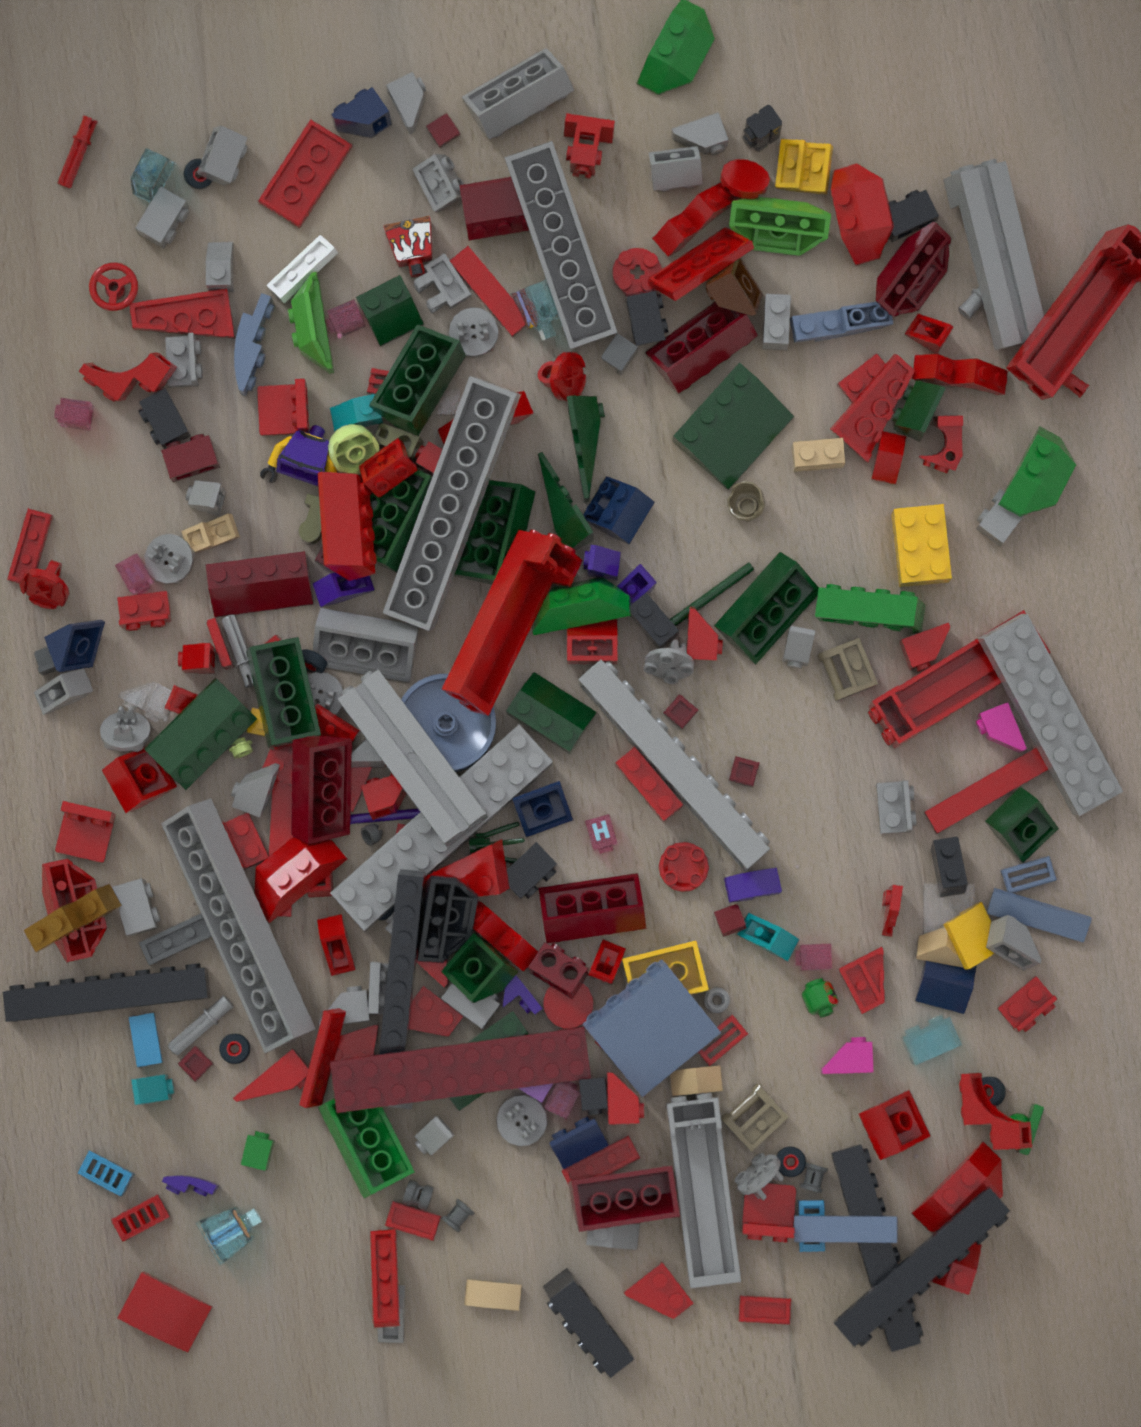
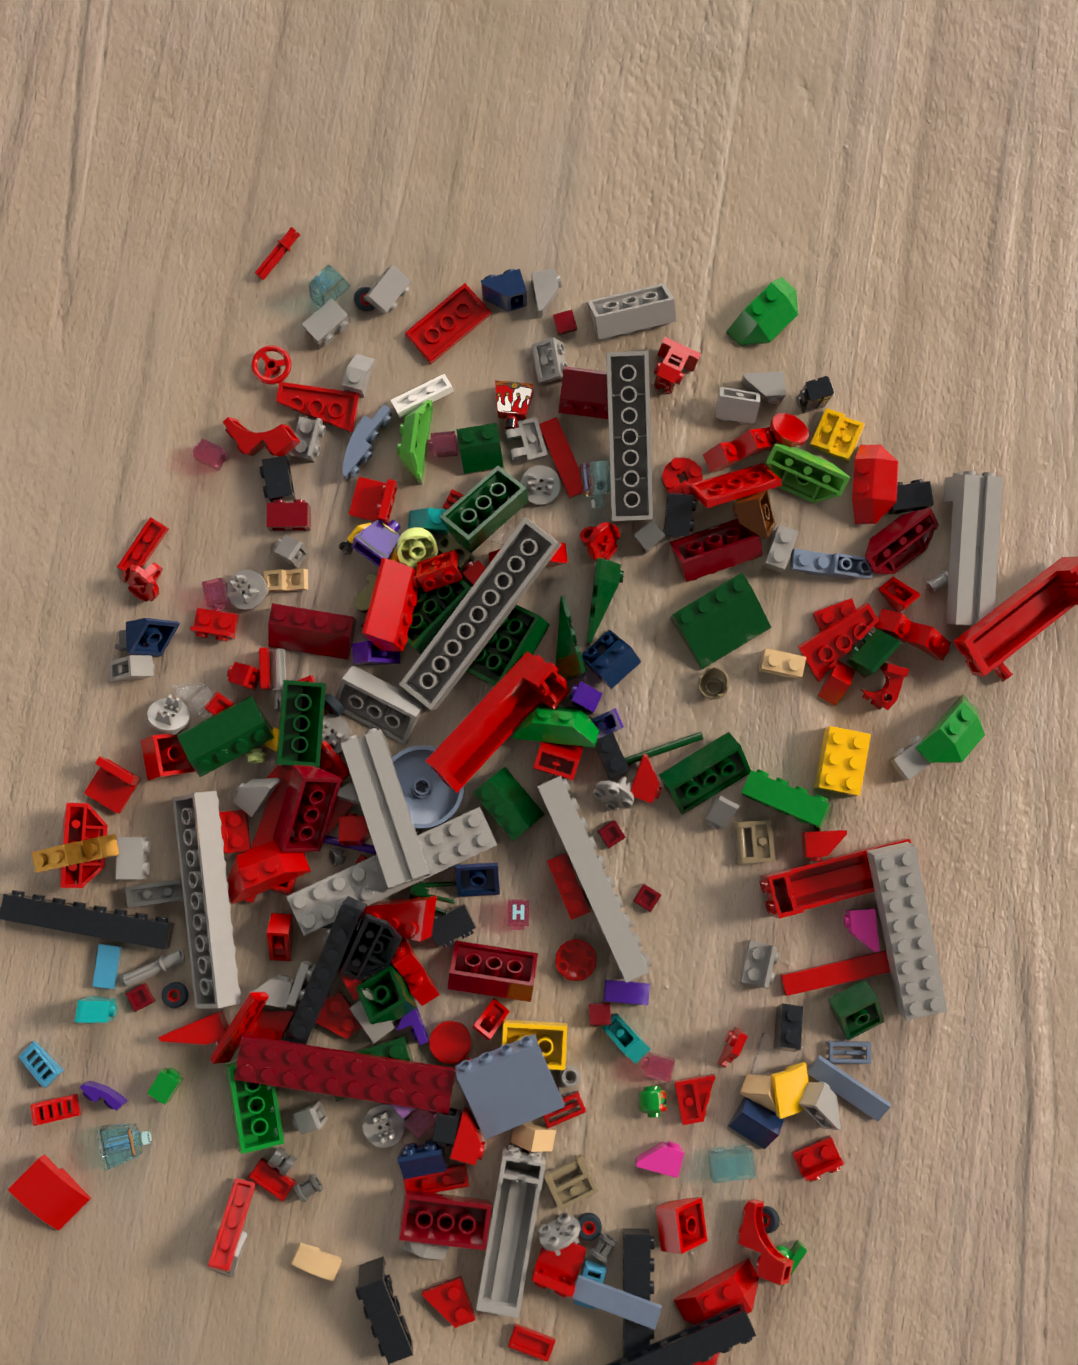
camera: 10 degrees right, 0 degrees up
(555, 974) = (446, 1017): dark red brick -> none

